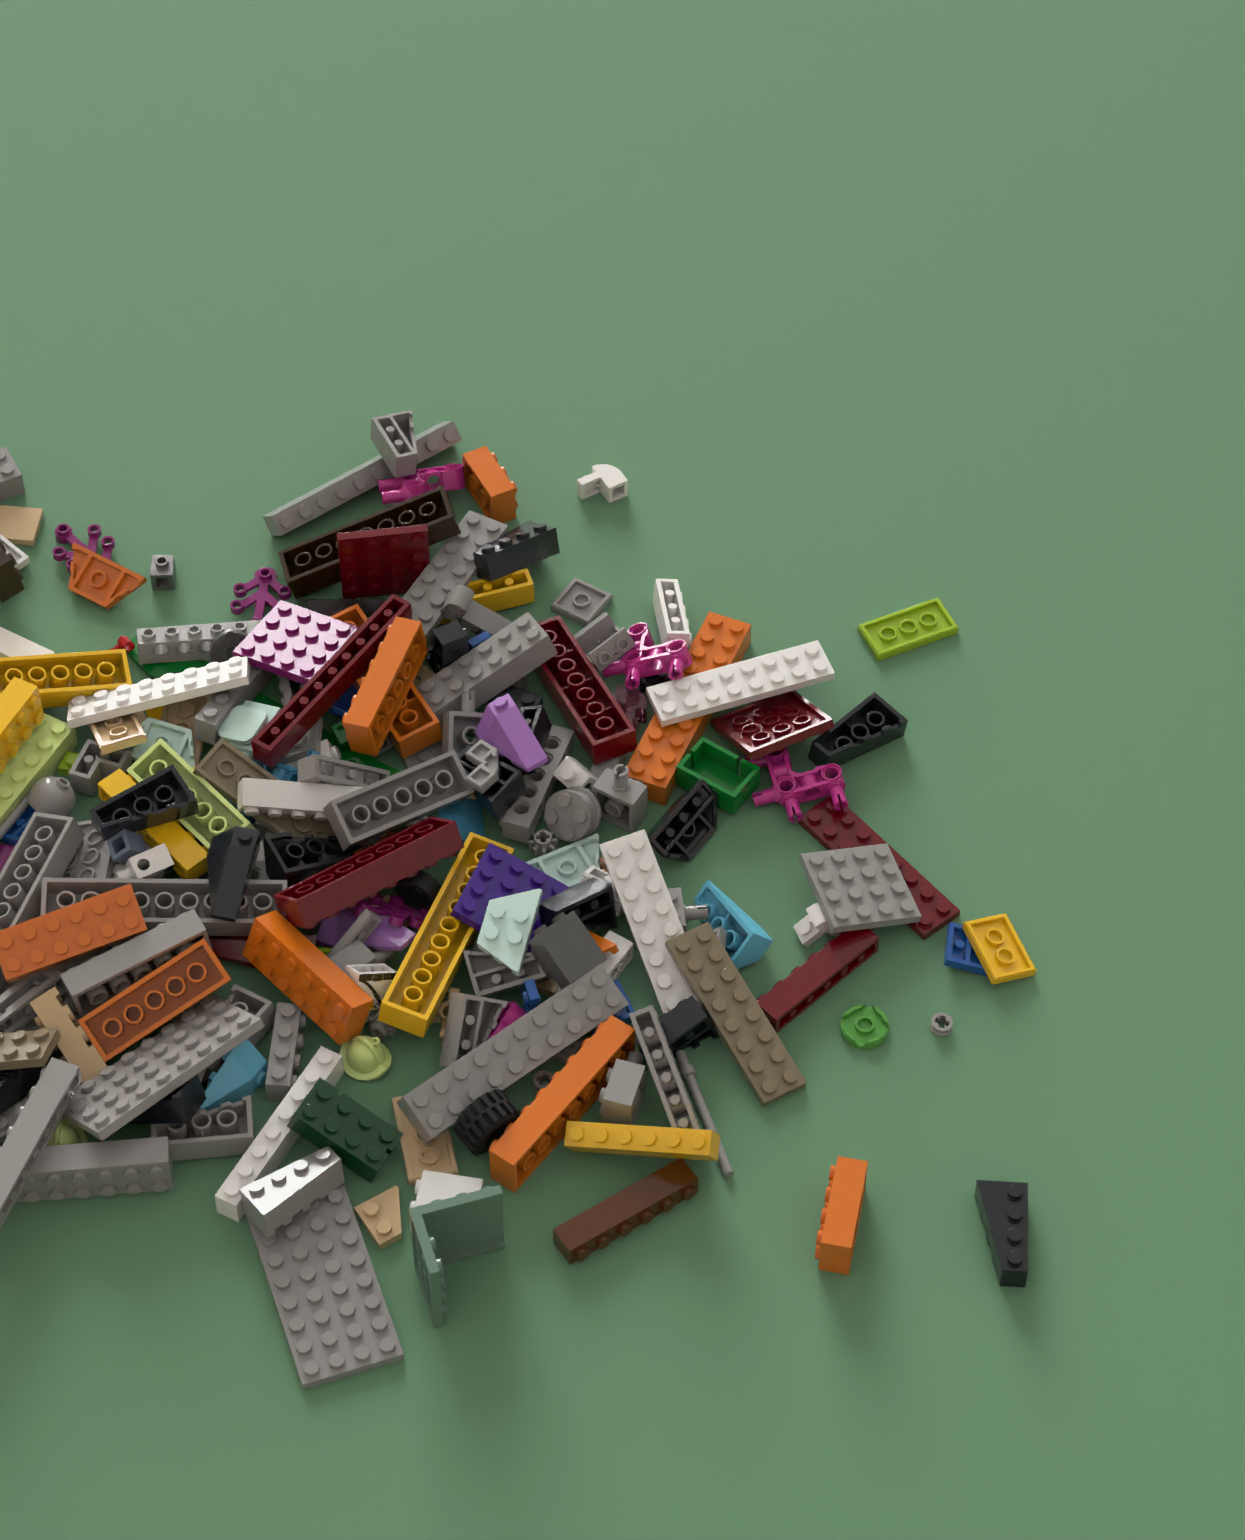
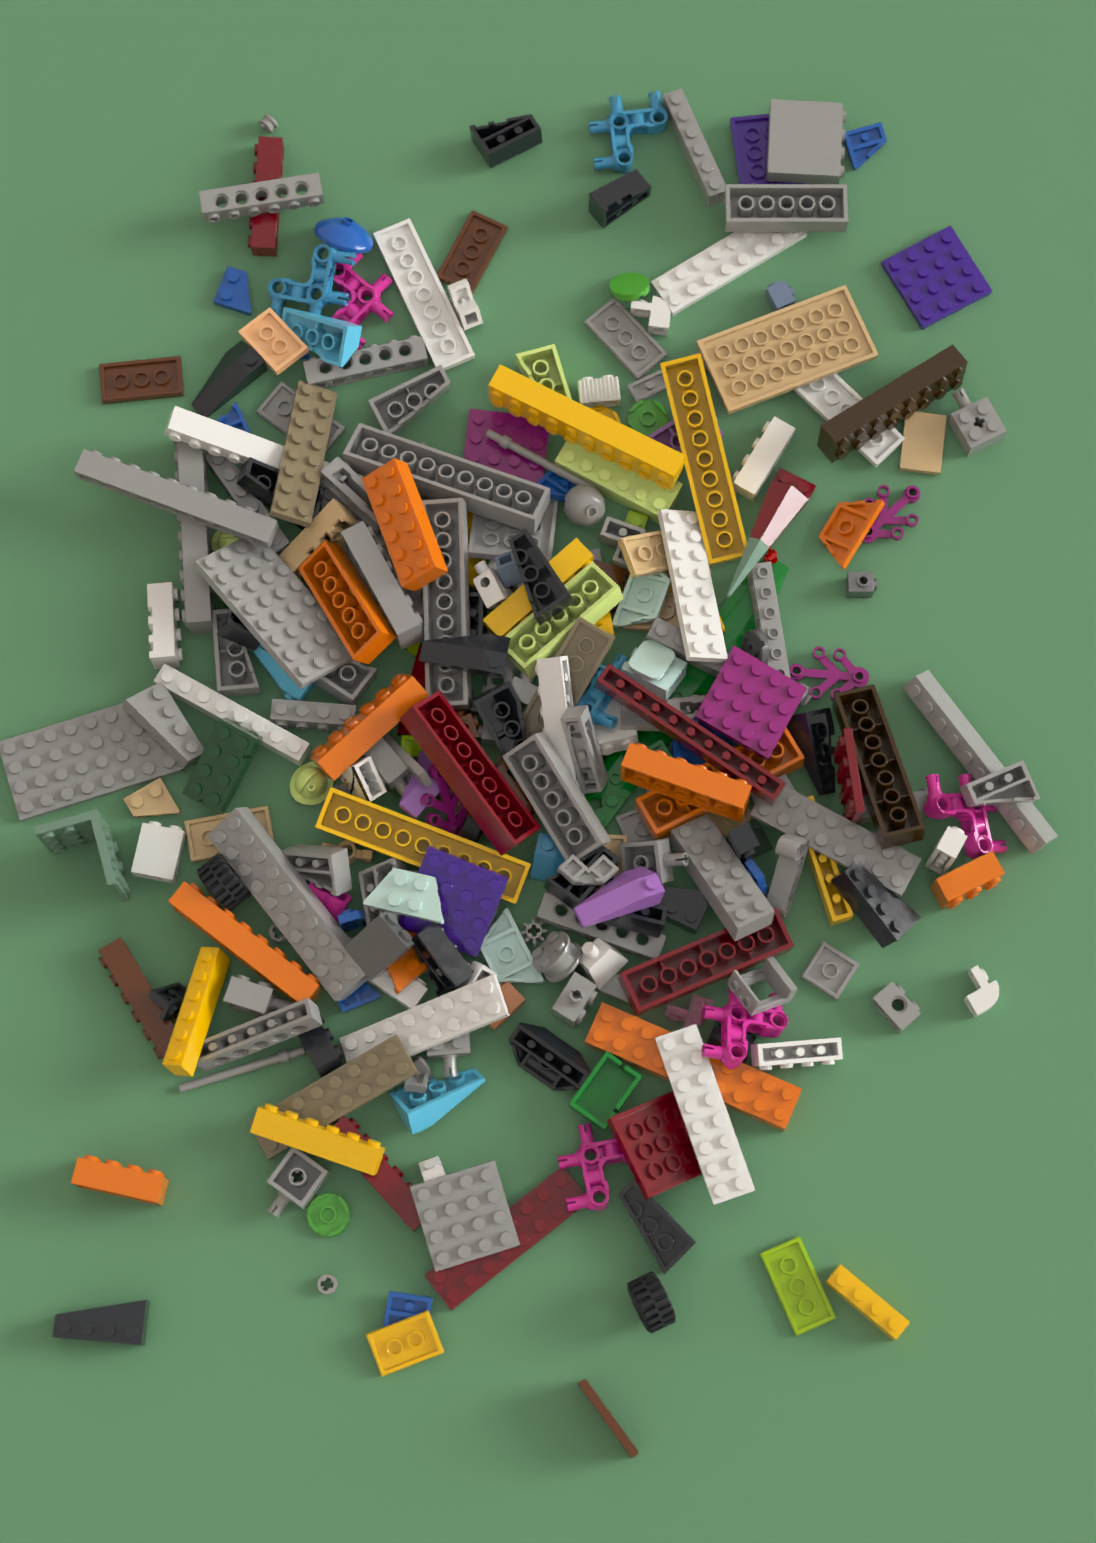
camera: 90 degrees right, 25 degrees up
(70, 631) = (782, 503): none -> dark red plate
(164, 1206) = (163, 625): none -> white wedge
(462, 482) = (946, 850): none -> white brick
(620, 547) = (897, 1019): none -> light grey brick
(627, 1170) = (170, 999): none -> black bracket
(786, 1017) = (317, 1139): none -> yellow brick
(830, 1048) = (300, 1192): none -> light grey brick
(920, 570) = (867, 1302): none -> yellow brick
(938, 730) = (651, 1302): none -> black tyre
(1059, 767) = (608, 1418): none -> reddish brown tile

